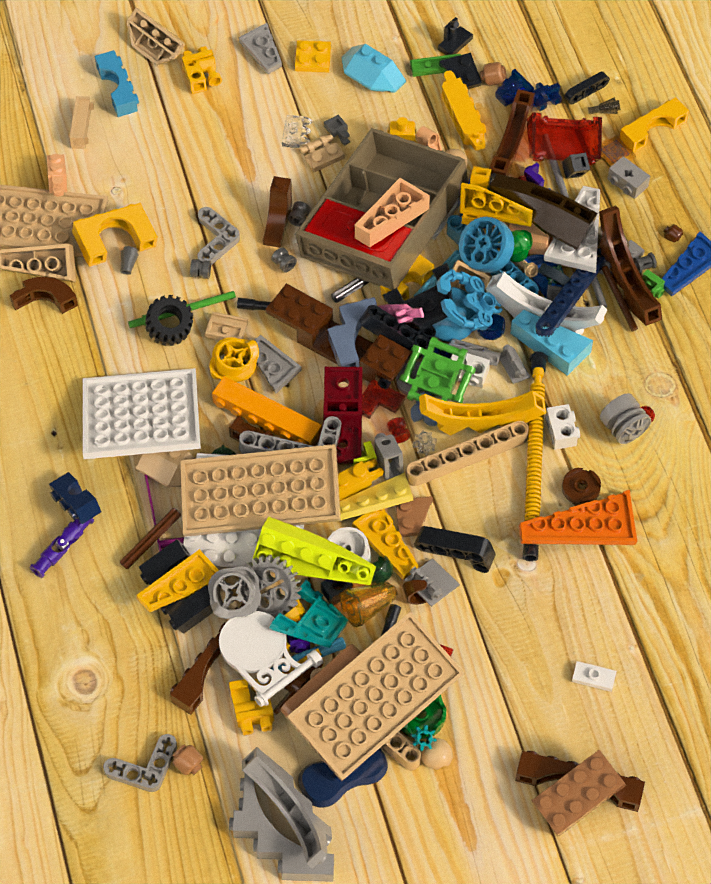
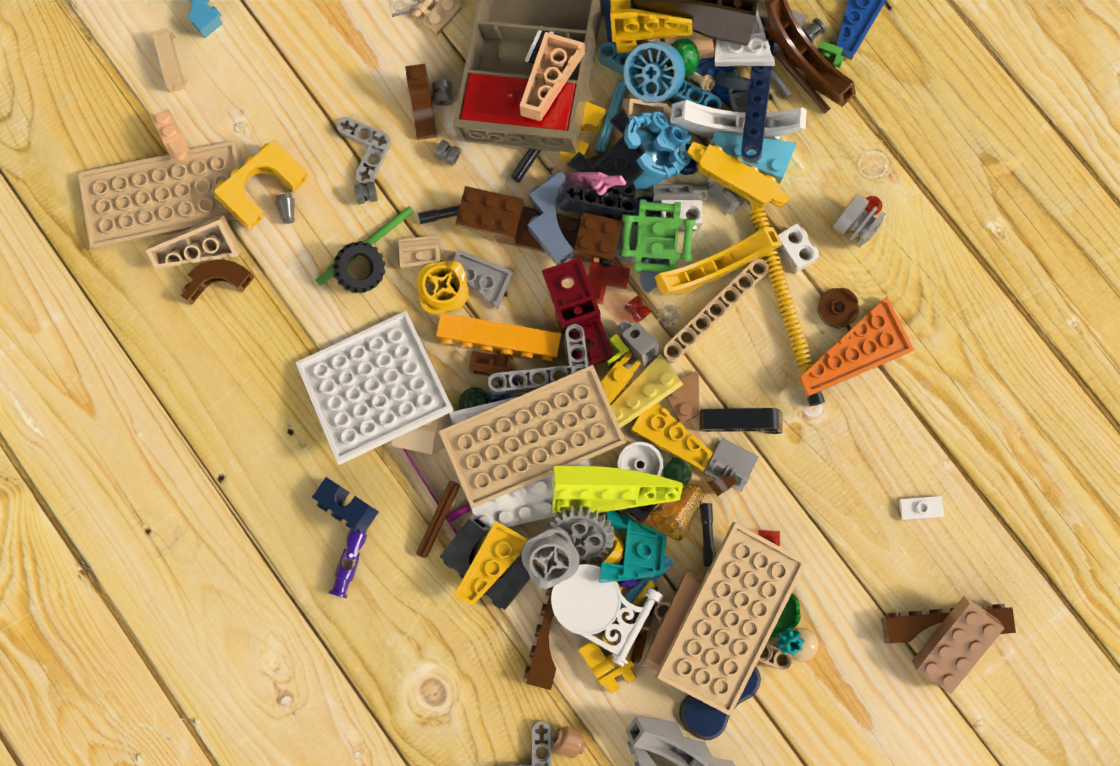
camera: 20 degrees left, 20 degrees up
(528, 348) = (737, 176): none -> yellow hinge

